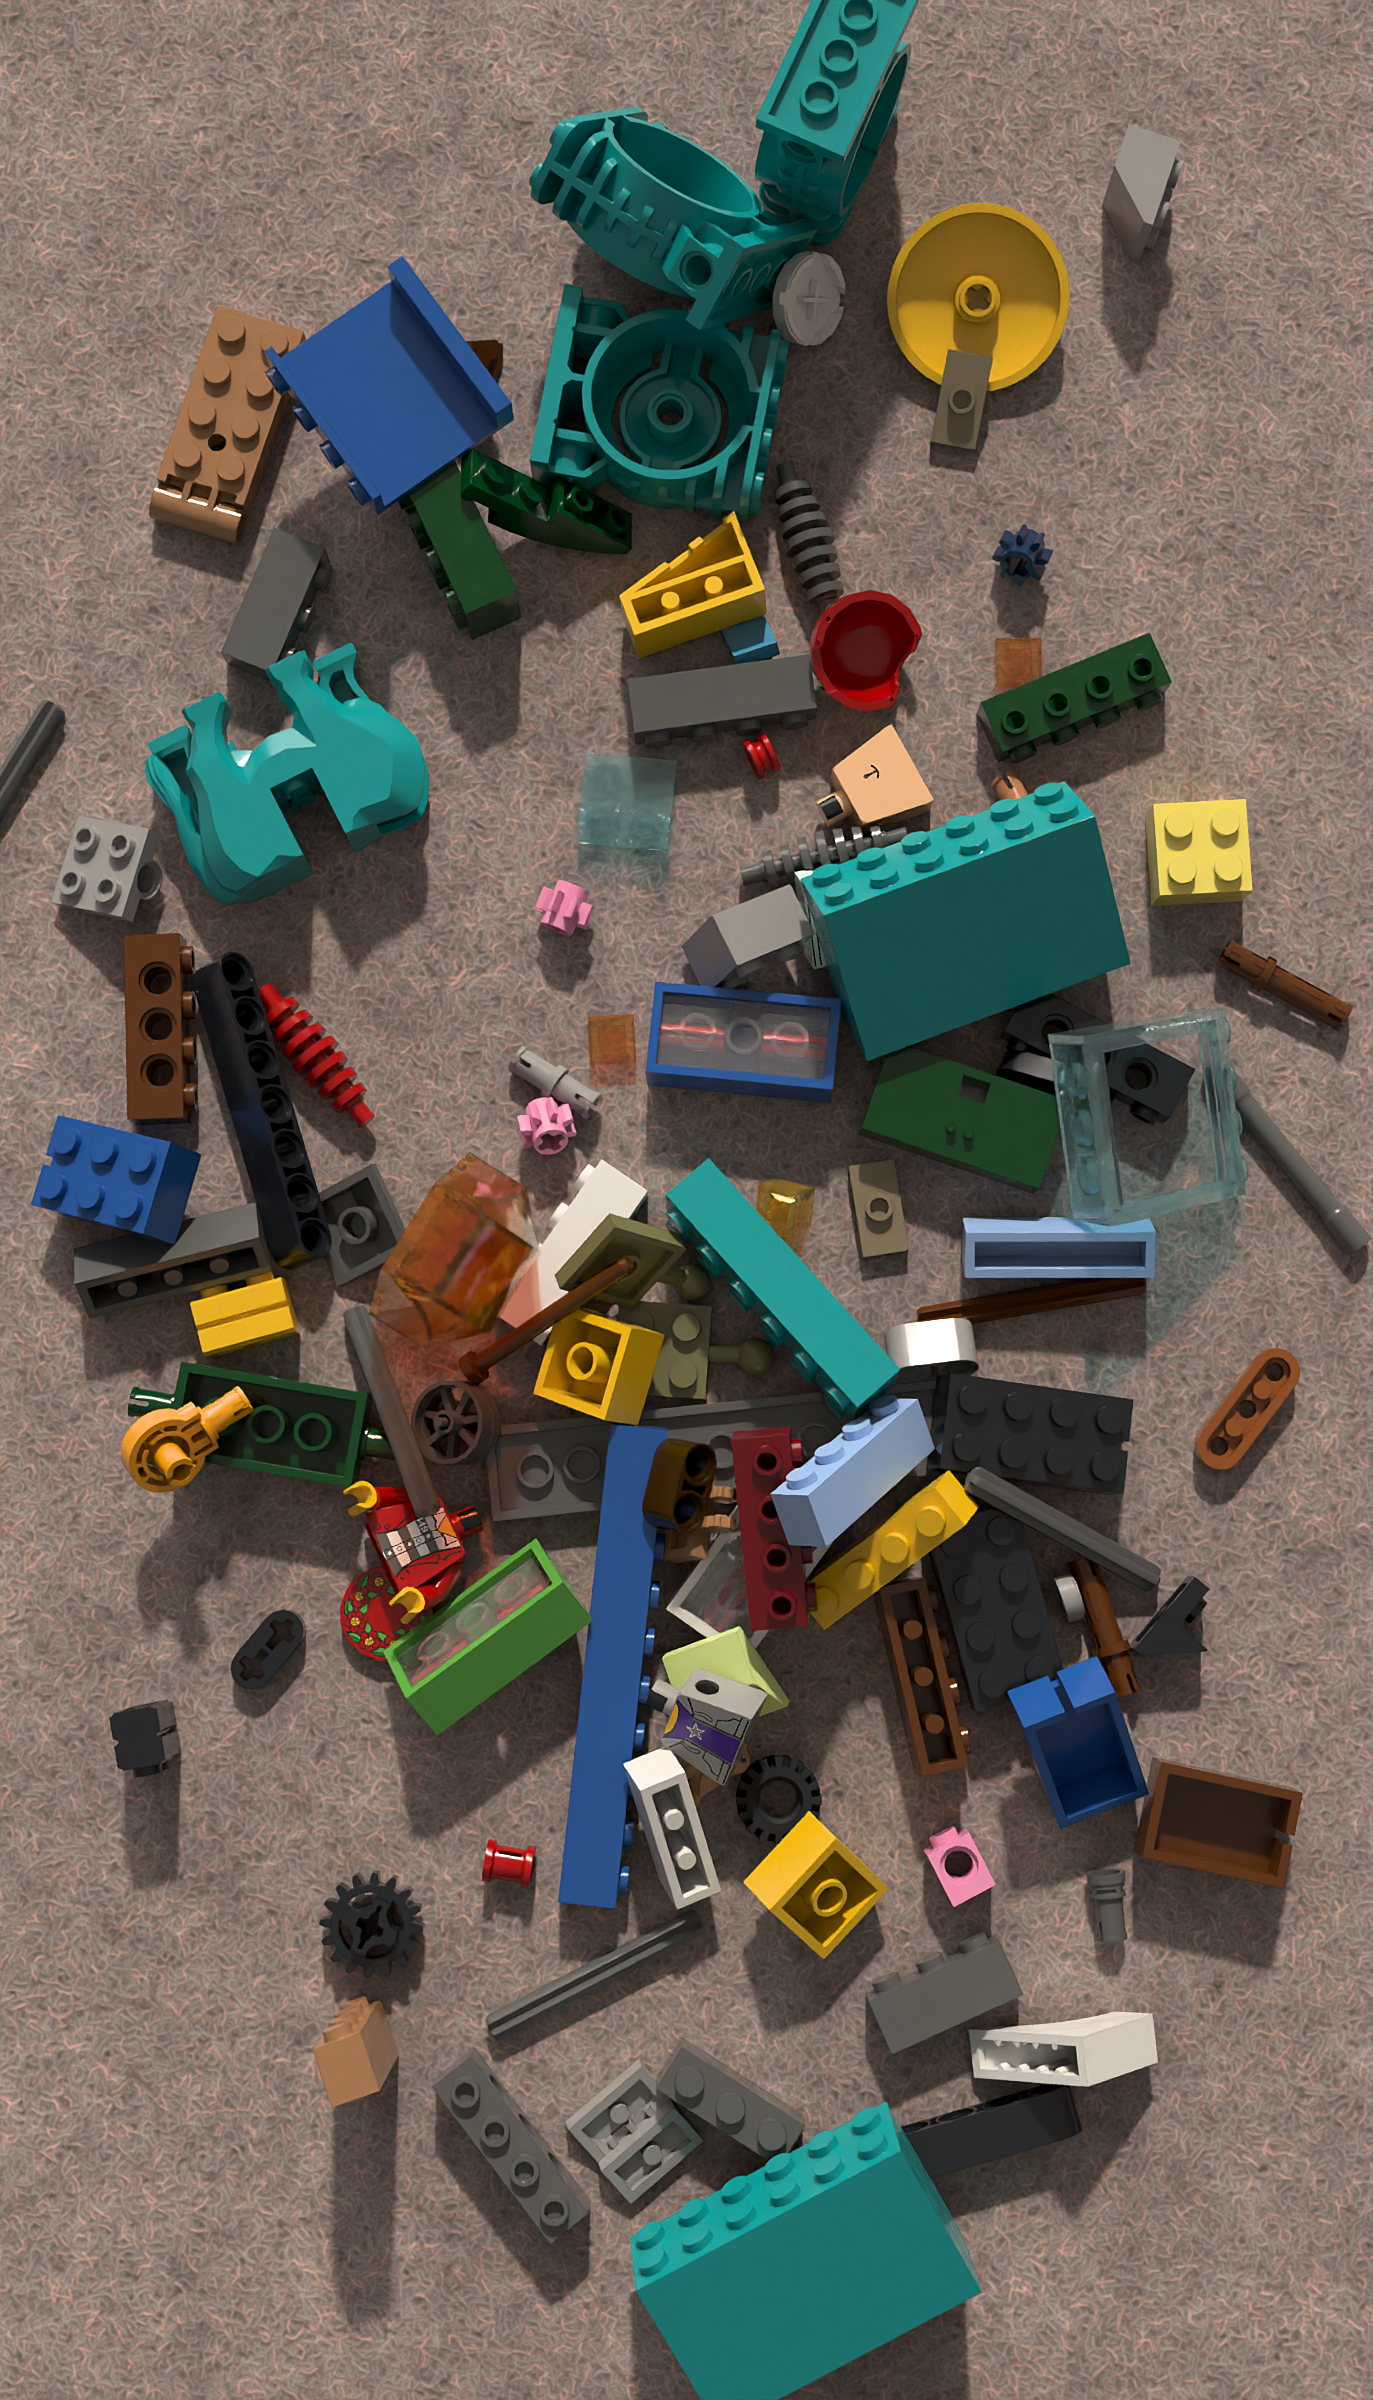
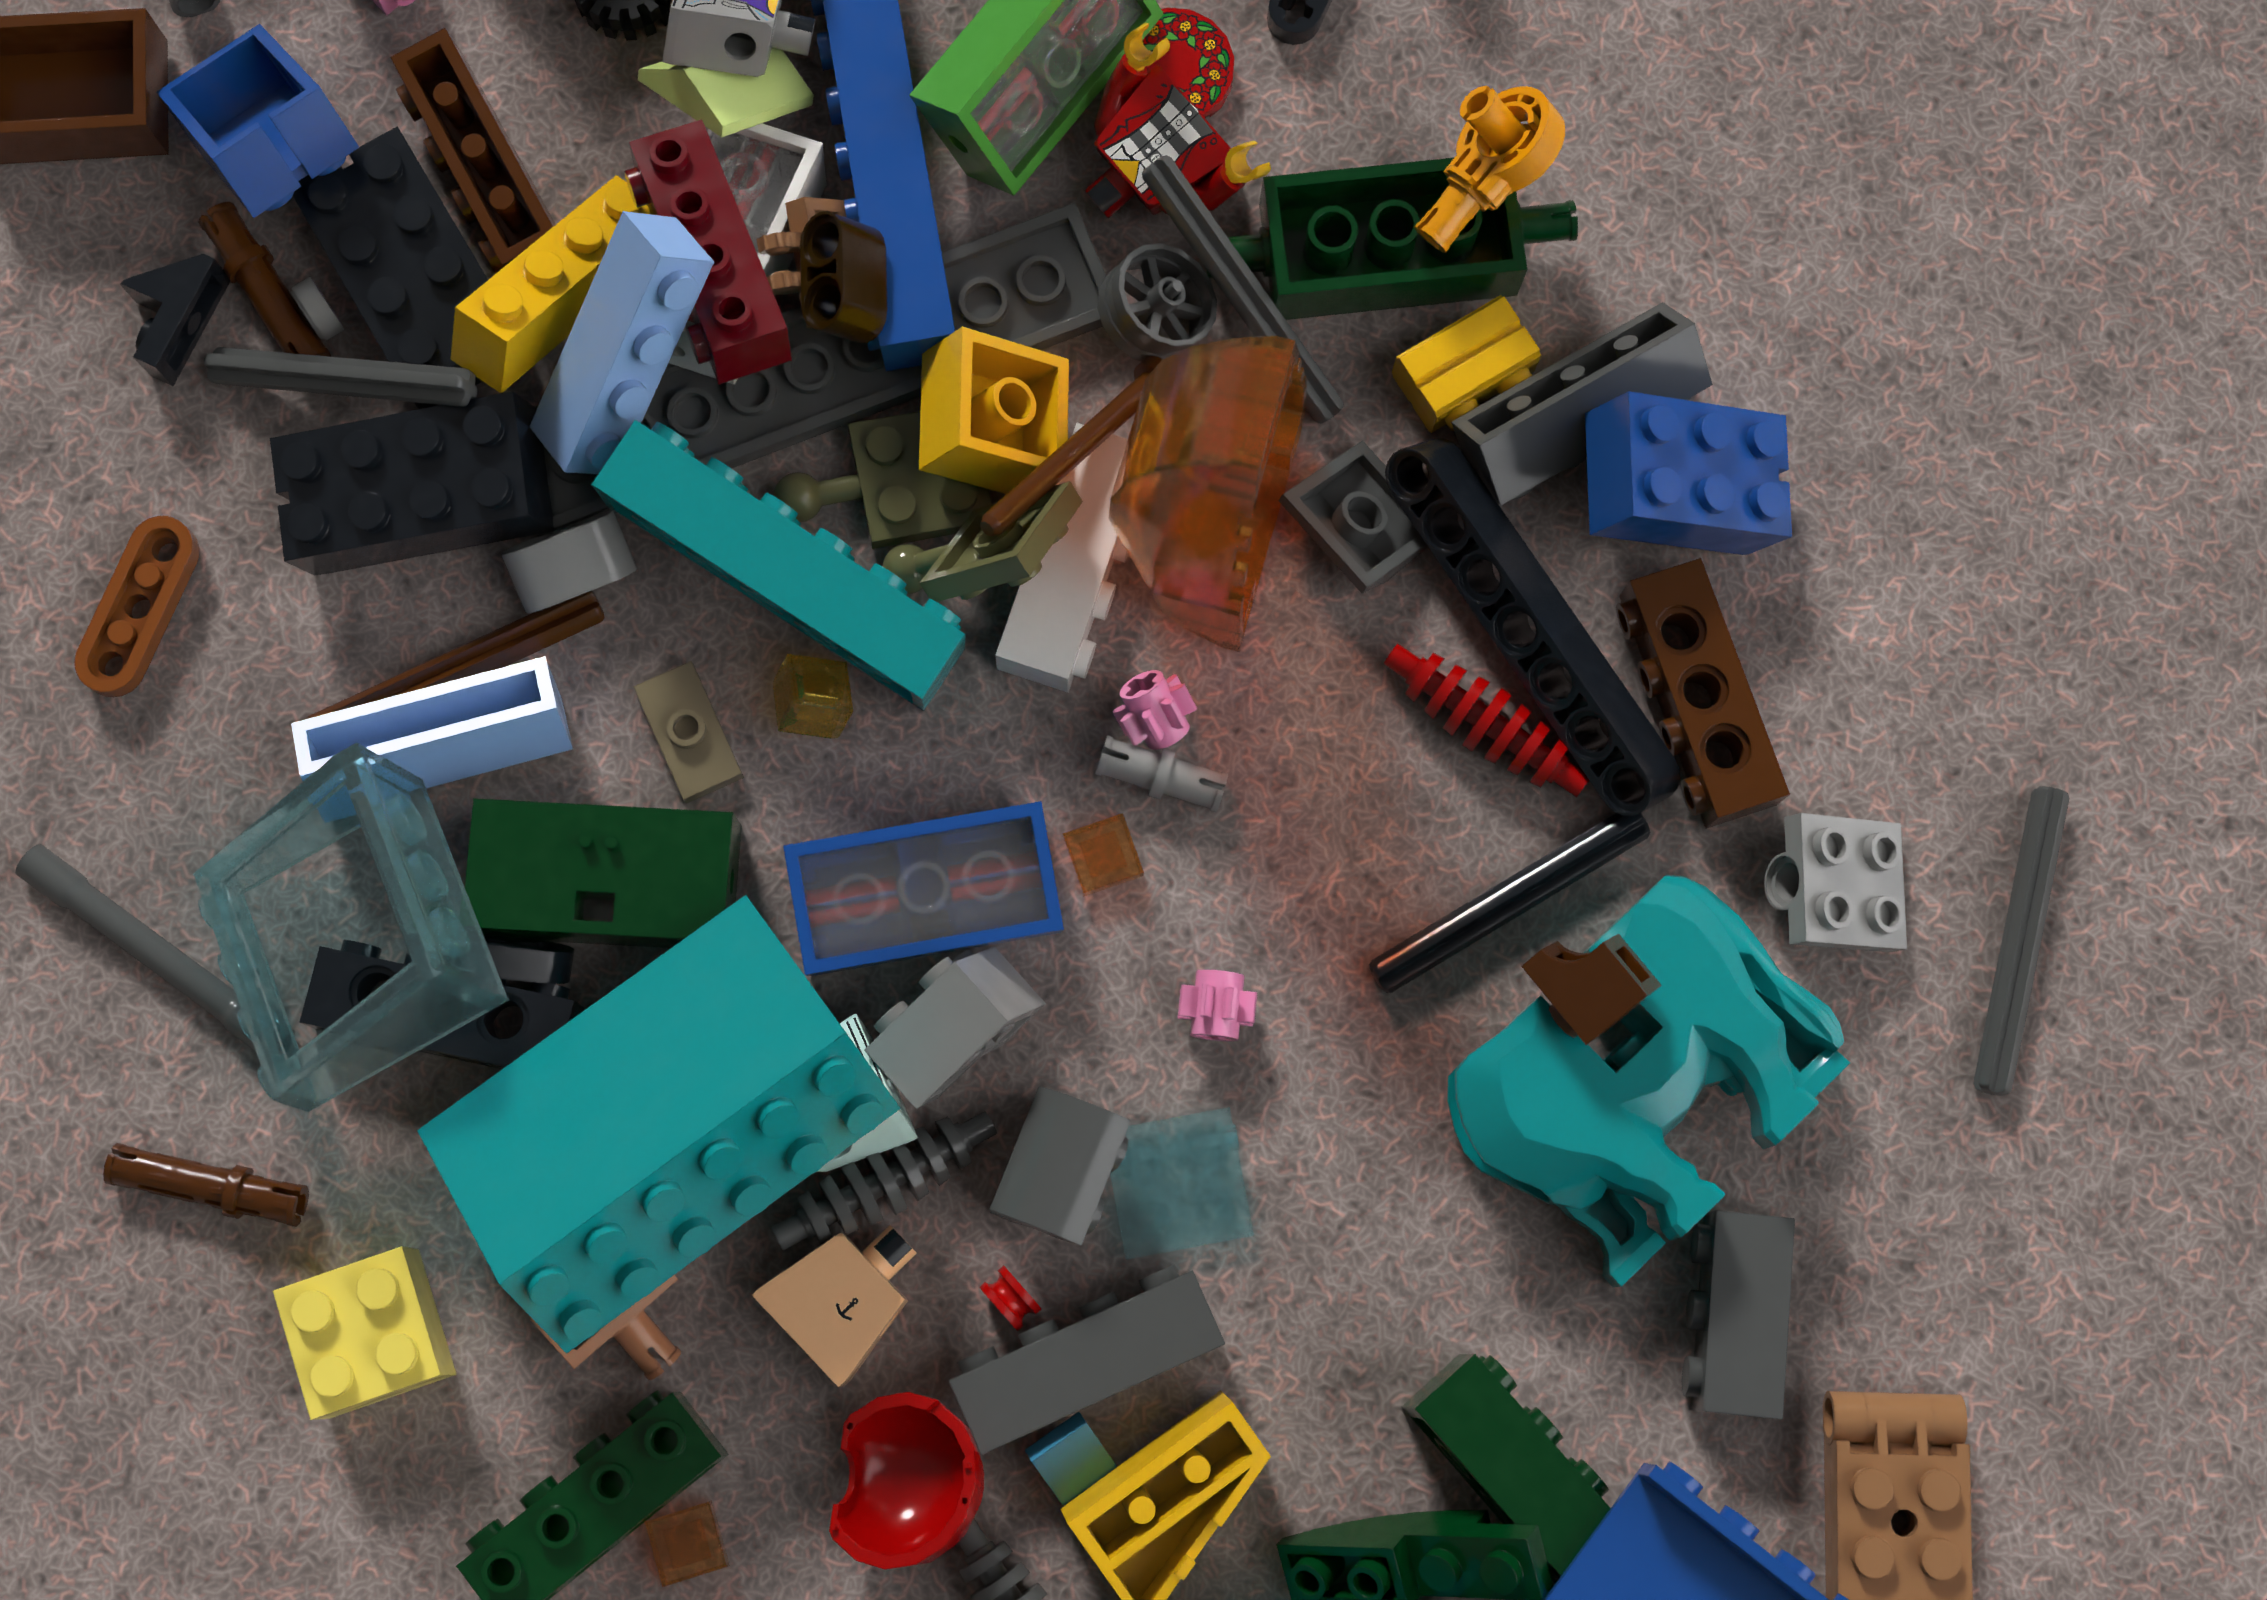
camera: 160 degrees right, 5 degrees down
(309, 823) = (1591, 988): none -> reddish brown brick
(343, 926) = (1507, 900): none -> black axle
(704, 824) = (1061, 1166): none -> dark grey brick

